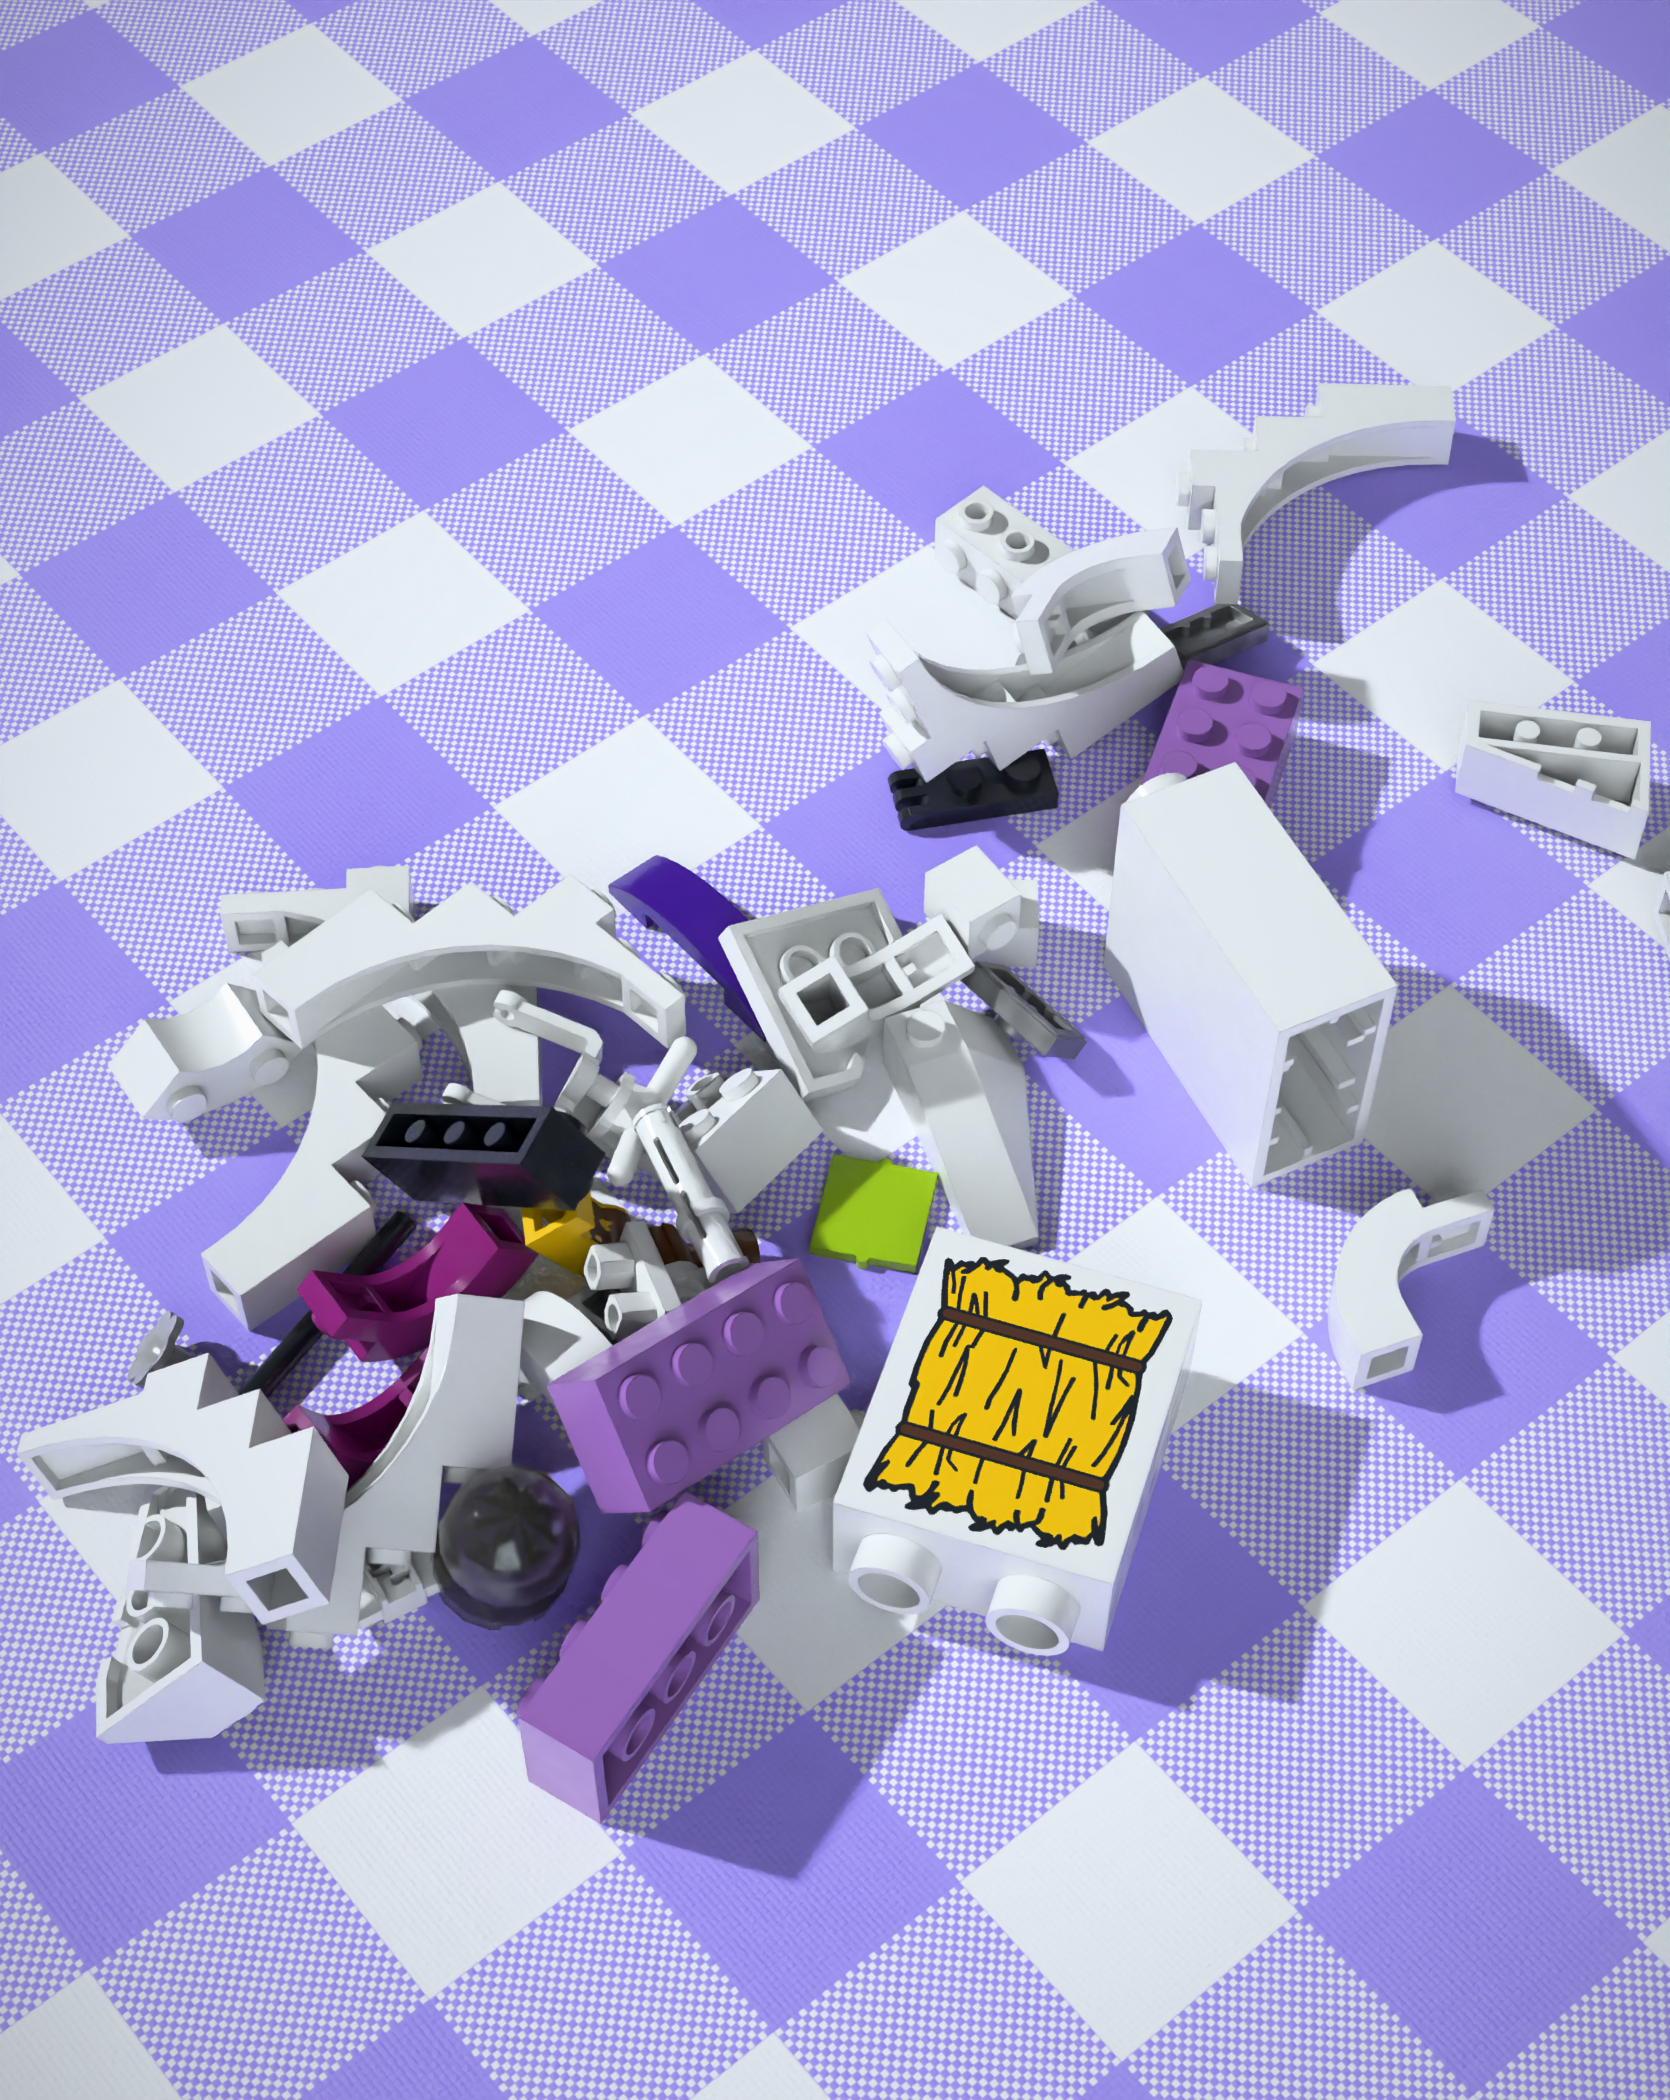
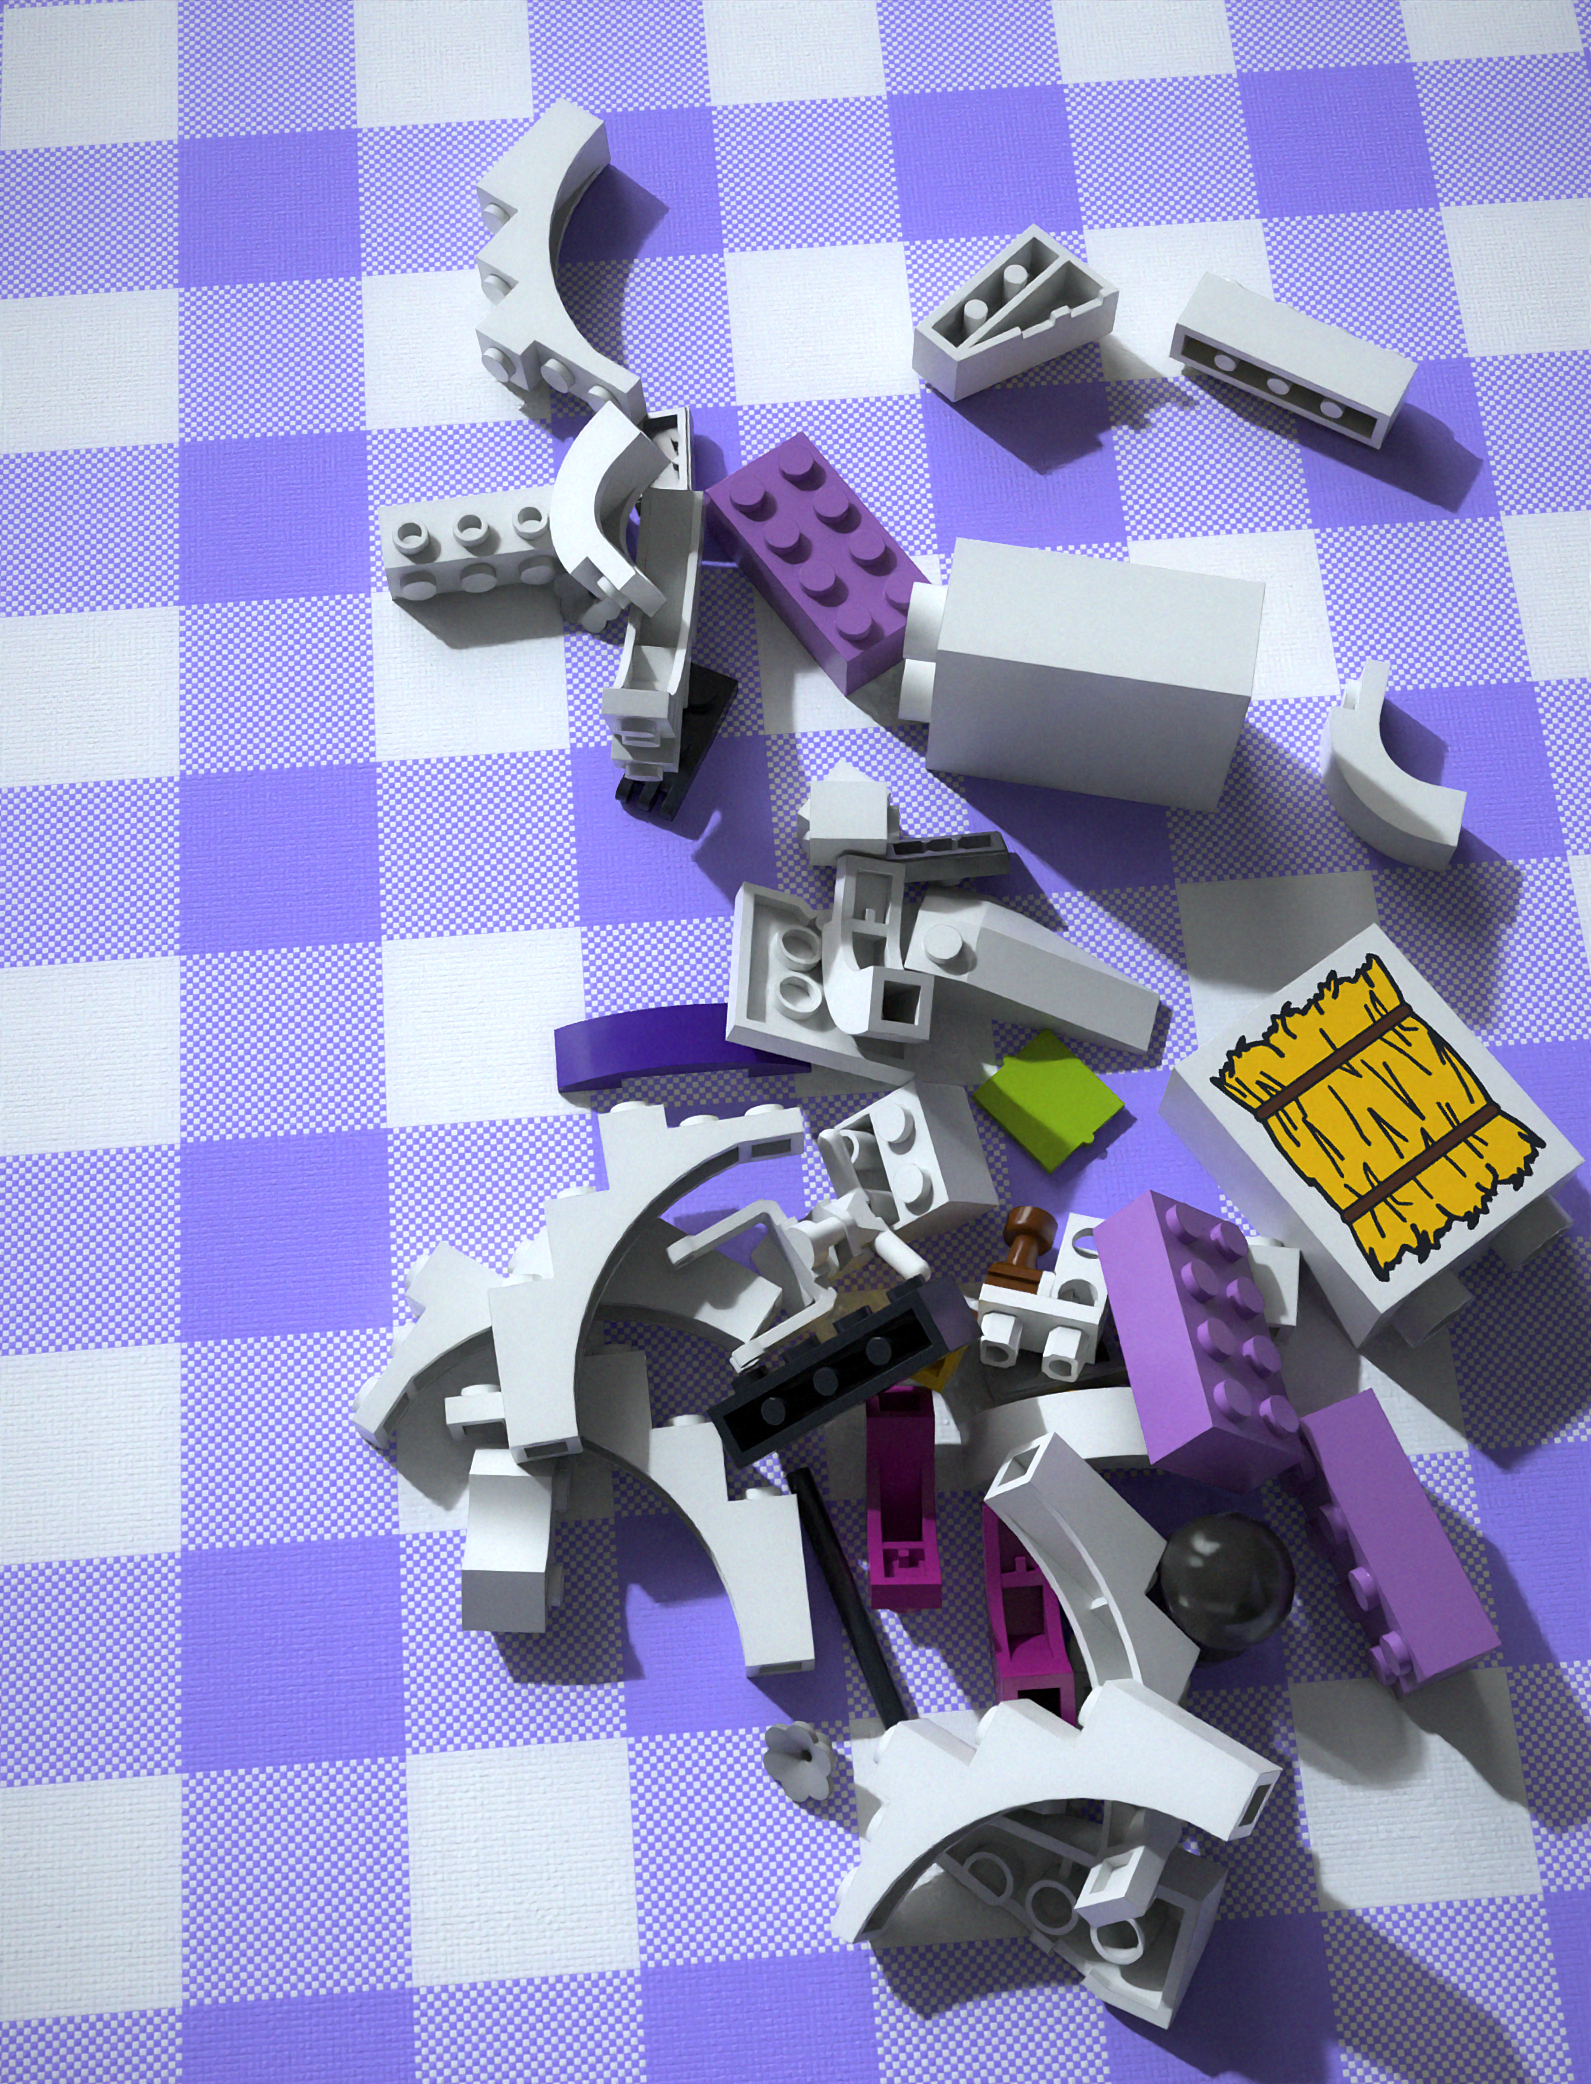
camera: 55 degrees left, 15 degrees up
(700, 1214) = (990, 1231): white pin -> none

